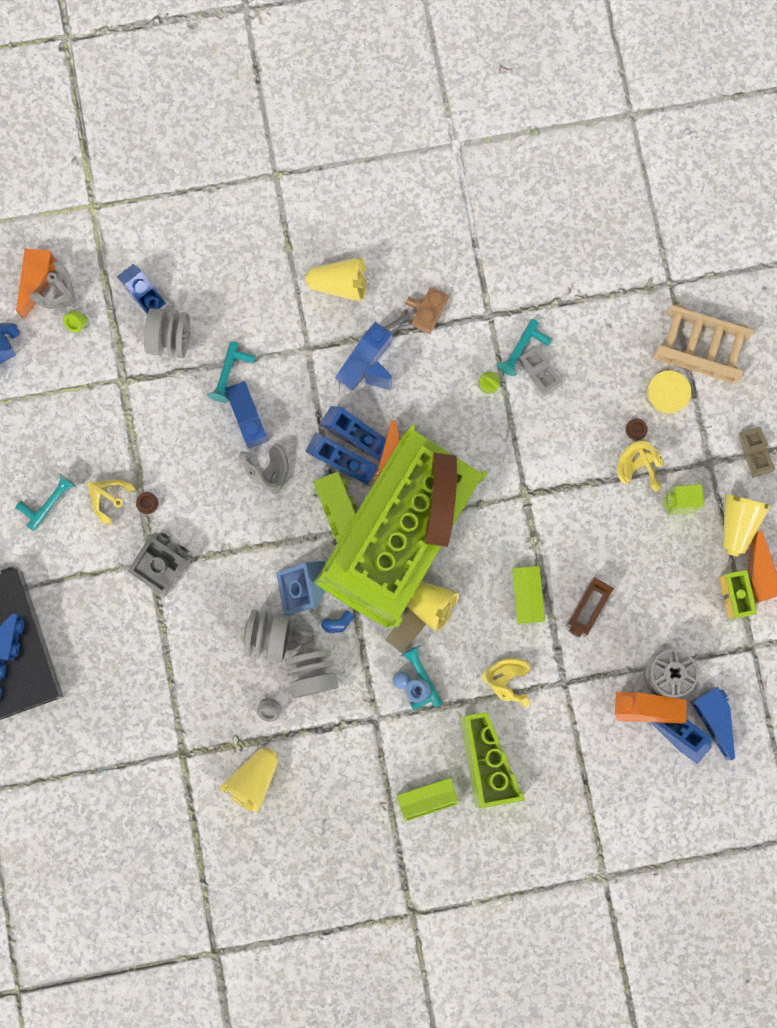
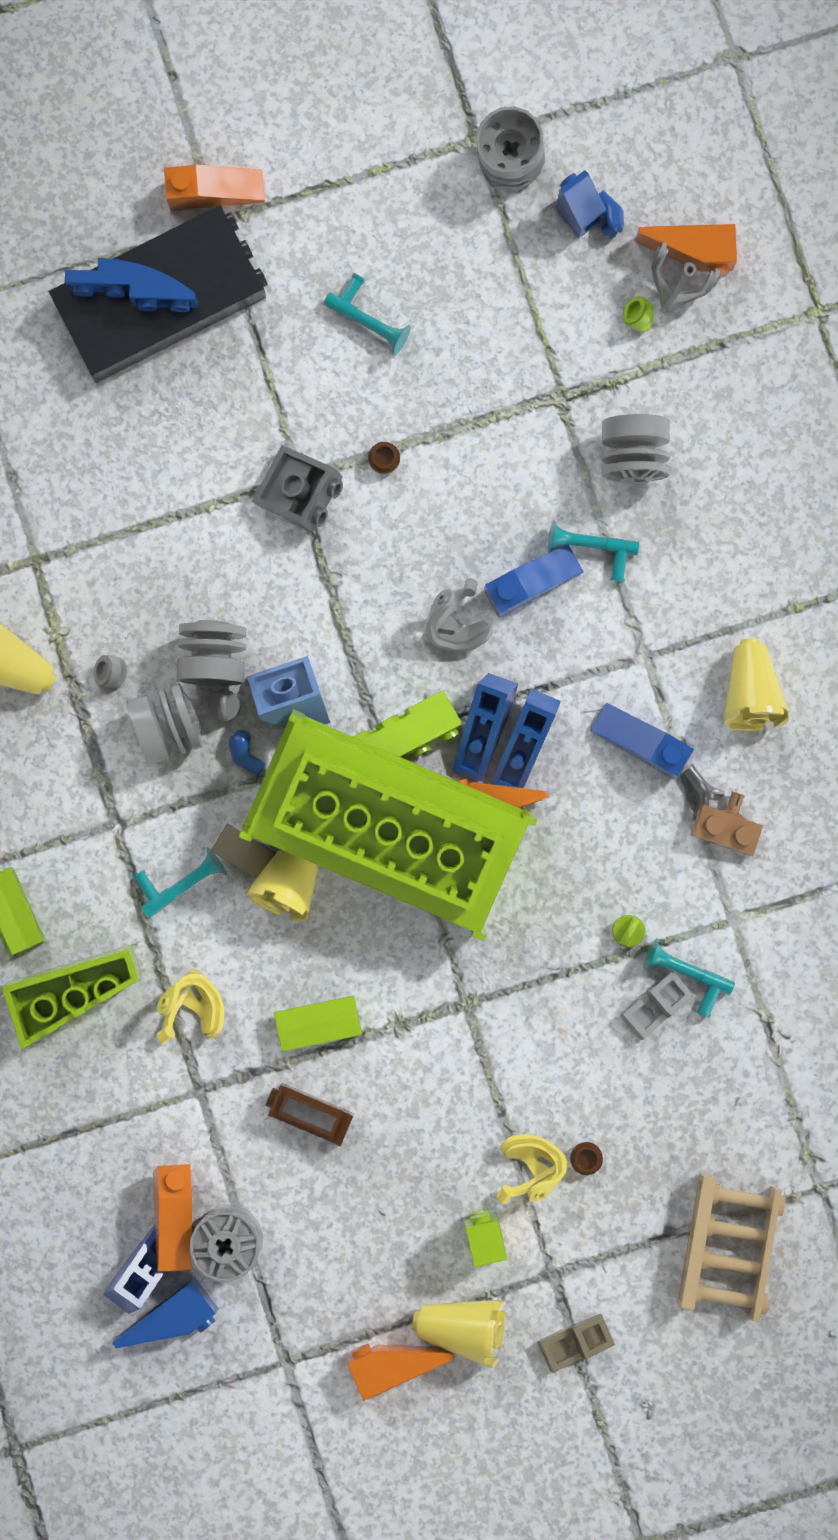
camera: 85 degrees right, 5 degrees up
(97, 489) = (391, 383): light yellow helmet -> none
(140, 288) = (699, 400): blue slope -> none
(378, 376) = (612, 763): blue slope -> none
(402, 680) = (173, 855): medium blue plate -> none
(442, 499) = (427, 876): reddish brown slope -> none
(669, 392) = (650, 1202): light yellow tile -> none
(737, 595) = (354, 1332): lime brick -> none

